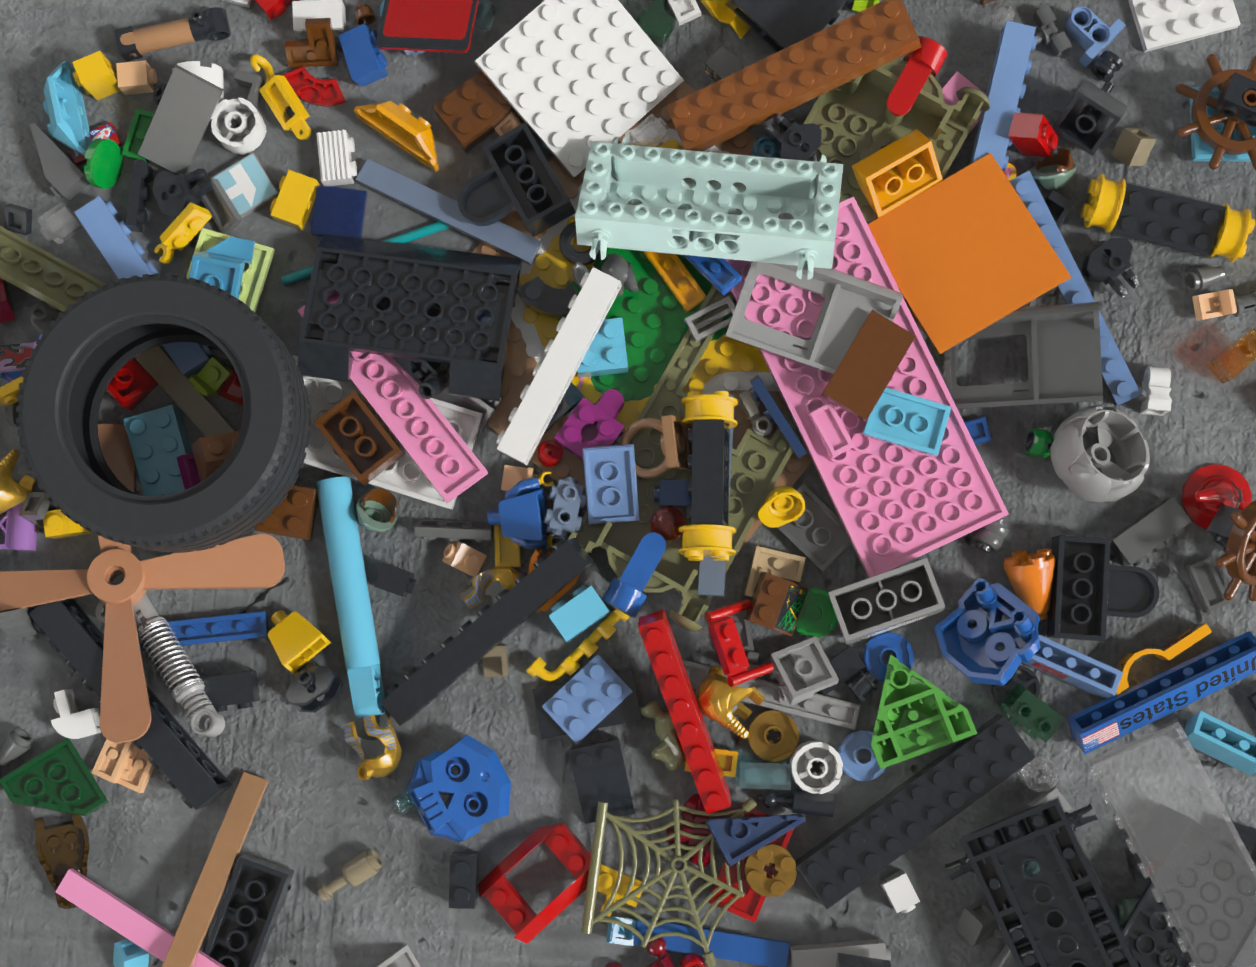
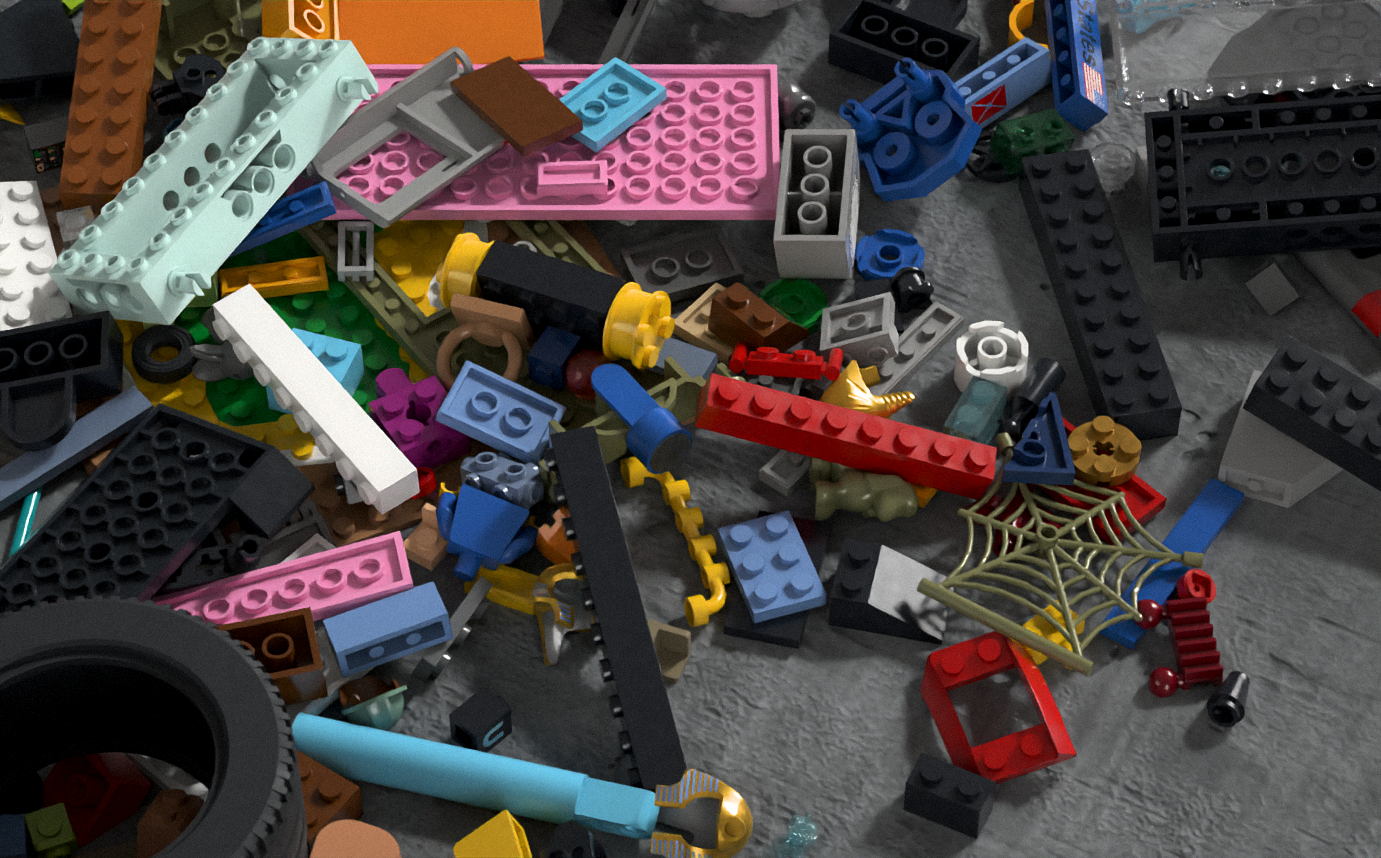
camera: 65 degrees left, 35 degrees down
(419, 498) = (388, 629): none -> medium blue brick
(463, 558) = (496, 634): light nougat bracket -> none
(478, 779) = (819, 747): blue brick -> none
(545, 299) = (224, 396): black brick -> none
(578, 613) = (651, 510): medium azure brick -> none
(620, 935) = (1109, 649): dark azure tile -> none
(766, 748) = (928, 381): pearl gold plate -> none
(773, 414) = (519, 224): dark blue wing -> none
(781, 507) = (638, 262): yellow hat -> none
(848, 752) = (999, 308): medium blue tile -> none
(900, 892) = (1196, 344): white brick -> none
(915, 717) = (979, 240): bright green wedge -> none
(1032, 578) = (860, 78): orange cone -> none
(1038, 443) = (707, 28): green rock -> none

